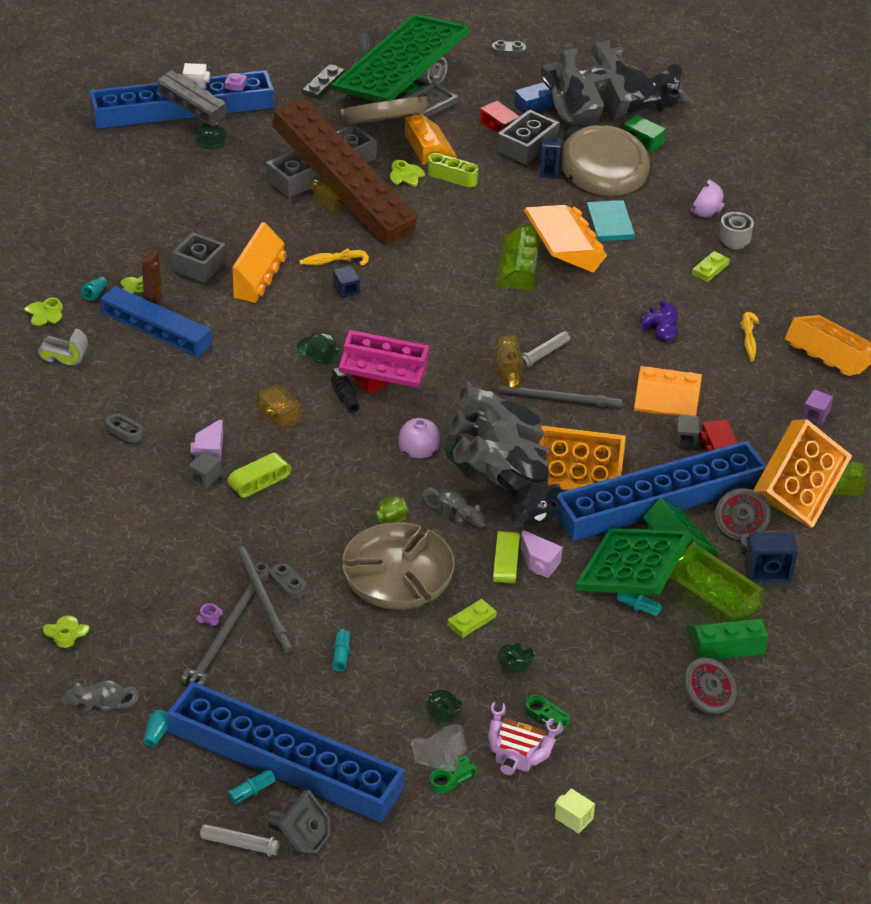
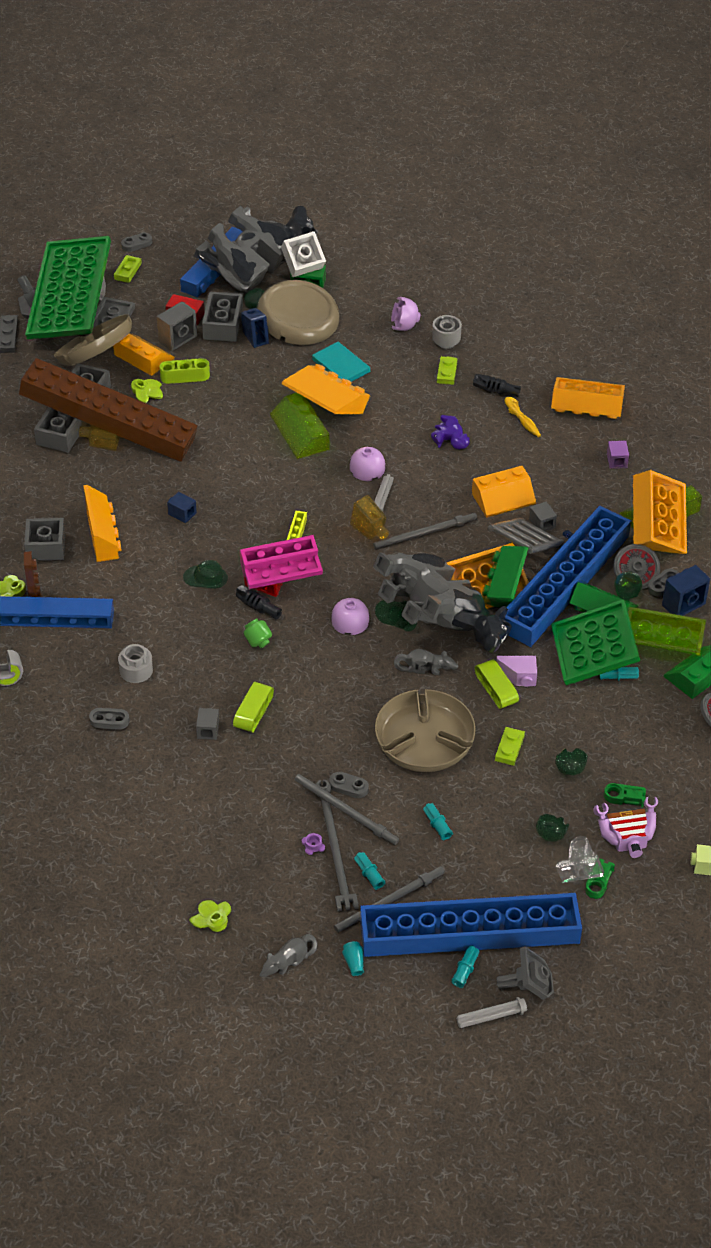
camera: 30 degrees left, 5 degrees up
(186, 392) = (135, 663): none -> light grey piece
(209, 440) = (191, 699): lavender slope -> none
(239, 662) = (369, 870): none -> teal axle
(279, 406) = (220, 640): clear yellow brick -> none
(282, 694) = (423, 880): none -> dark grey bar
(317, 414) = (257, 633): none -> bright green head
(324, 258) = (160, 483): yellow piece -> none
(392, 510) = (382, 687): clear neon green head -> none
(441, 341) = (298, 525): none -> neon yellow piece
(475, 128) = (176, 326): none -> dark grey brick
(478, 67) = (127, 269): none -> lime plate
(555, 315) = (367, 464): none -> lavender cylinder
(592, 461) = (504, 575): none -> green slope
(643, 107) = (303, 254): none -> white brick
(651, 426) = (526, 534): none -> dark grey bar
(716, 435) = (571, 513): red brick -> none
(717, 527) = (628, 585): none -> clear green hair
(747, 297) = (495, 385): none -> black hinge

